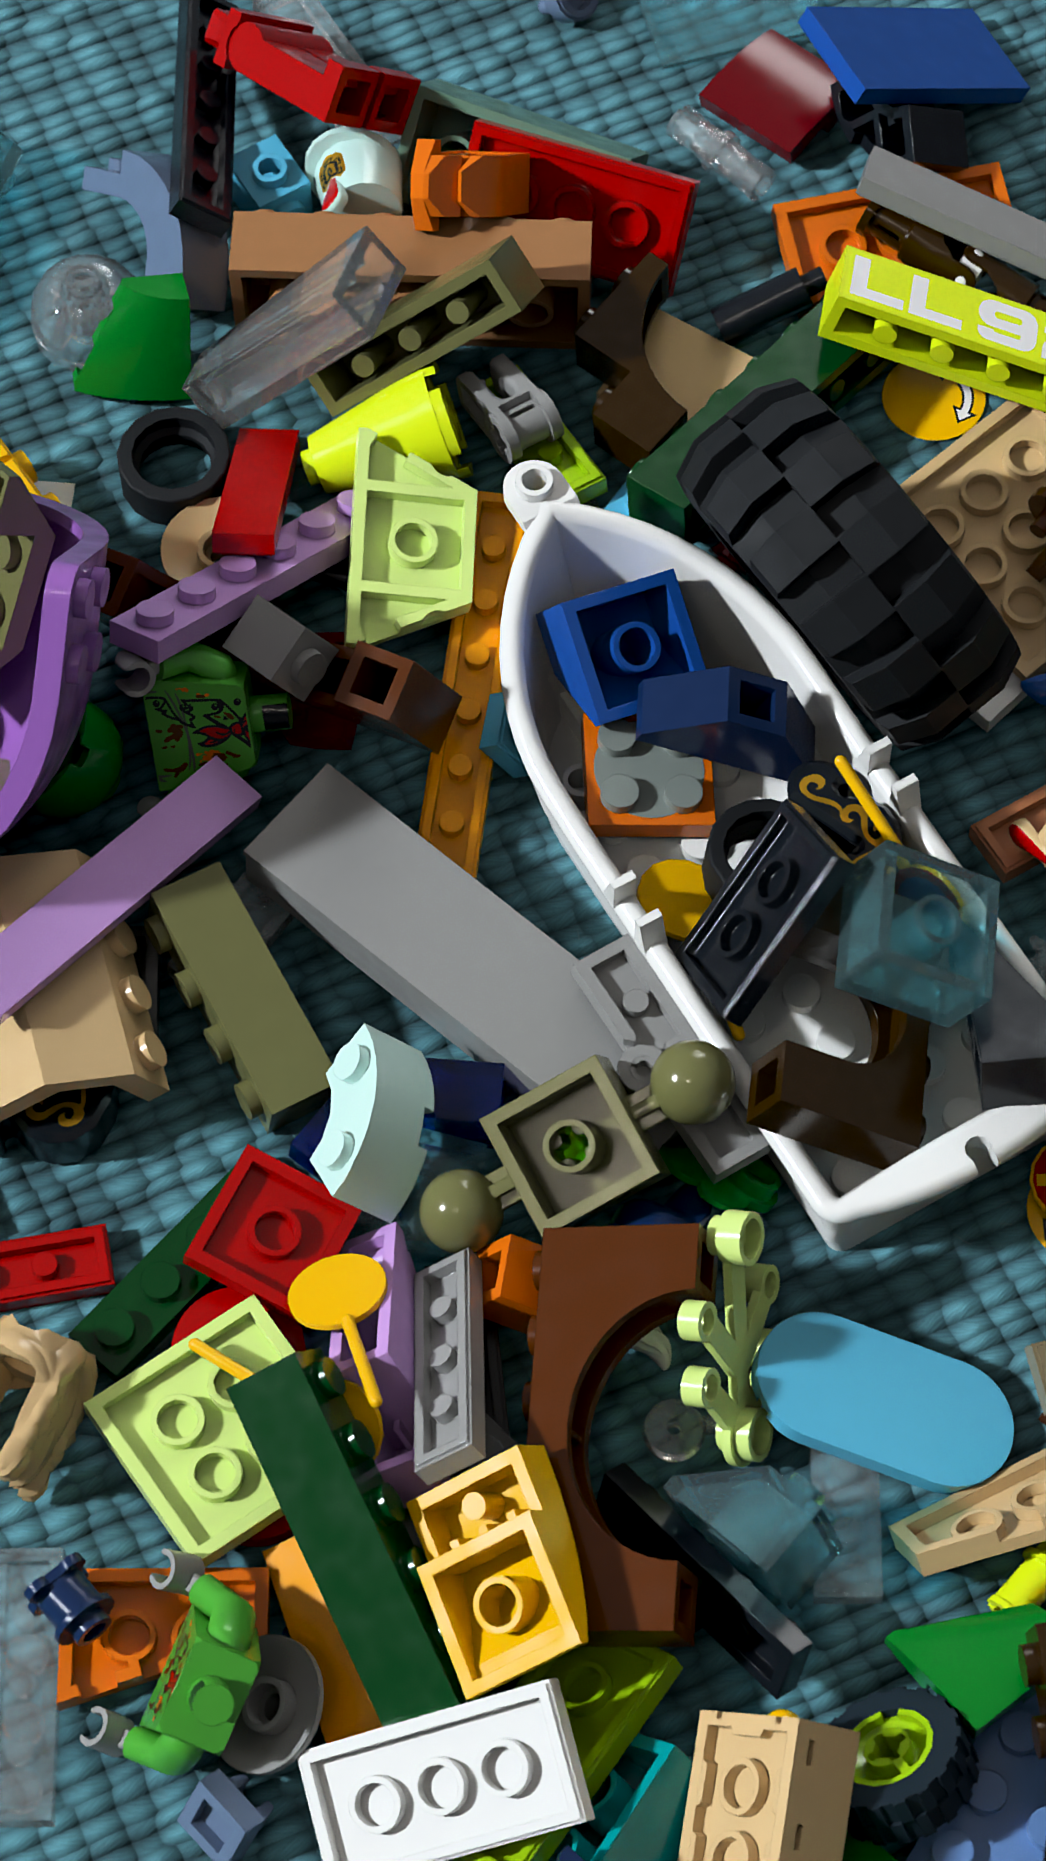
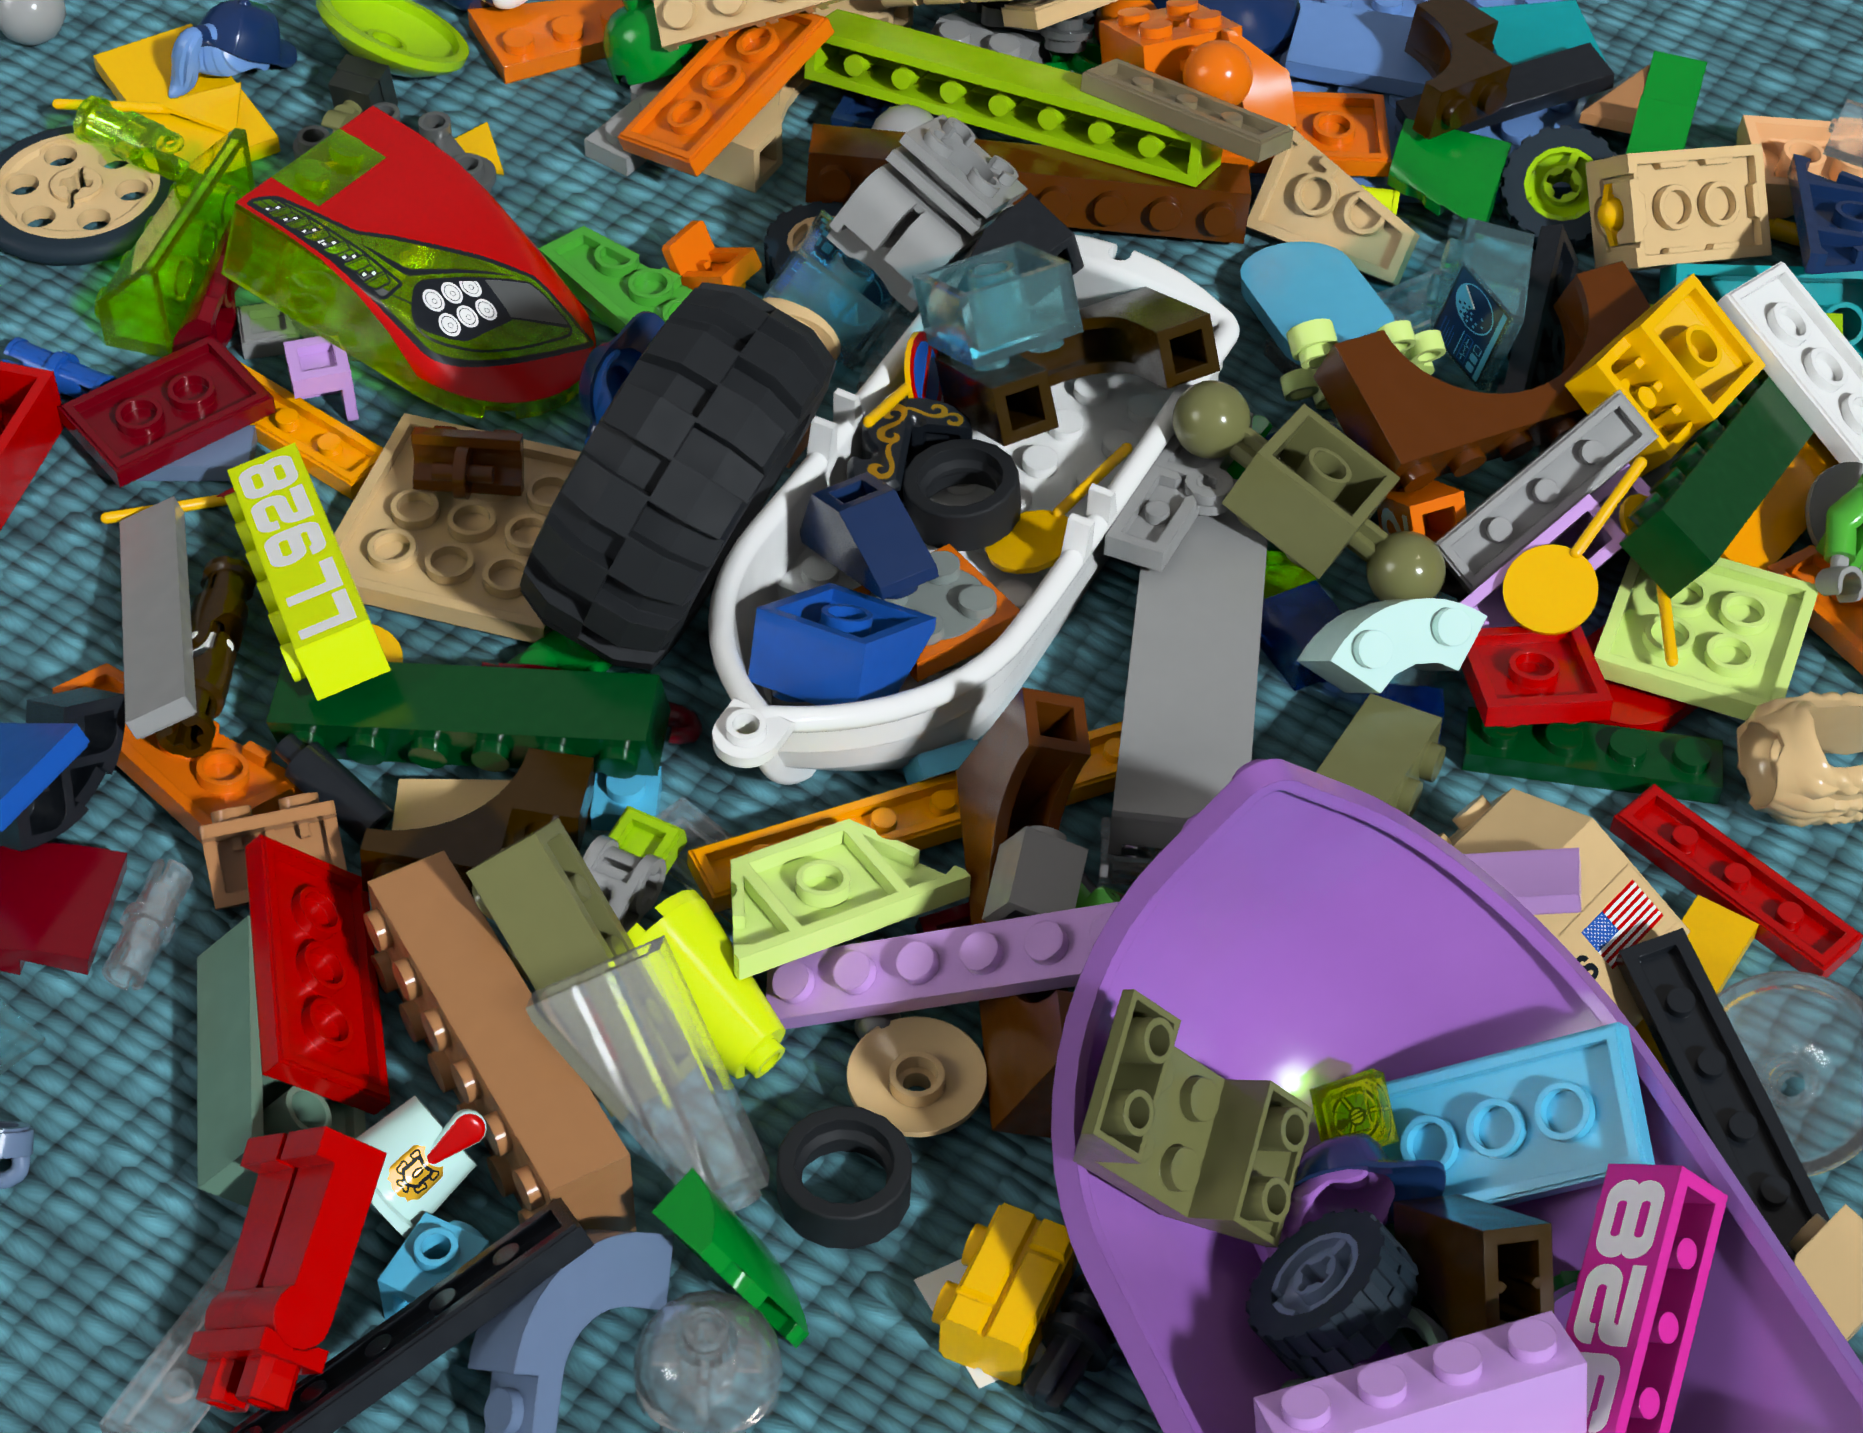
camera: 125 degrees left, 15 degrees down
(256, 492) = (857, 1034): red tile -> none
(466, 184) = (376, 1010): orange piece -> none
(725, 238) = (299, 823): none -> medium nougat bracket
(763, 912) = (1044, 408): black tile -> none

